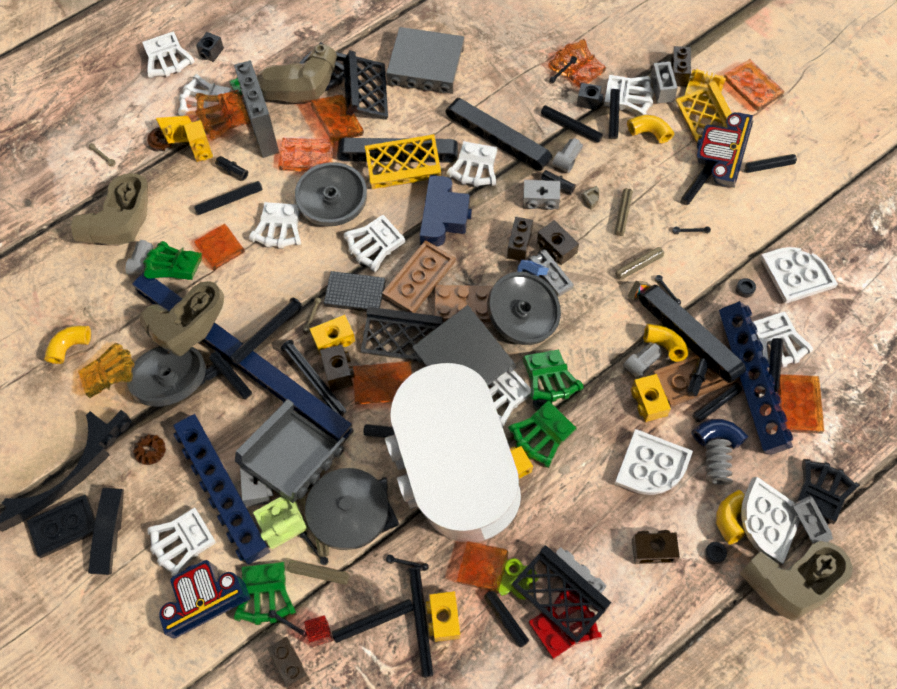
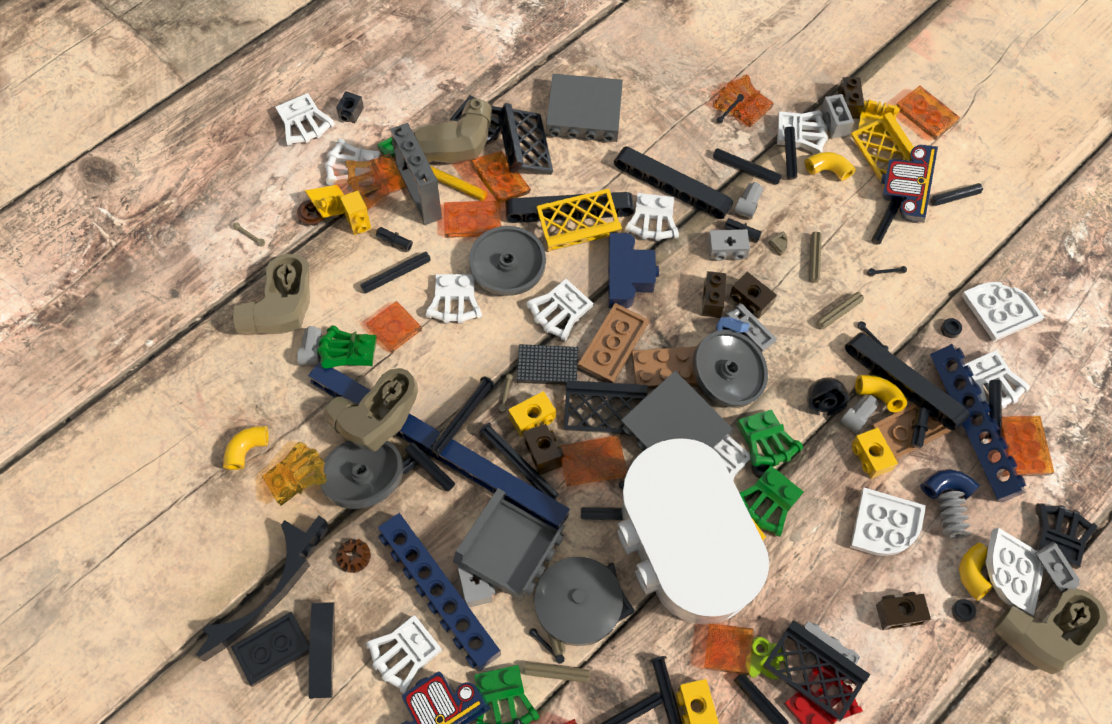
camera: 10 degrees left, 0 degrees up
(280, 521) = (508, 621): yellowish green plate -> none
(295, 120) = (459, 184): none -> yellow axle
(390, 559) = (630, 650): black hinge -> none
(589, 96) = (762, 135): black brick -> none
(613, 341) = (827, 396): none -> black cylinder
(638, 287) = (843, 337): dark tan tile -> none
(716, 402) = (941, 451): black axle -> none

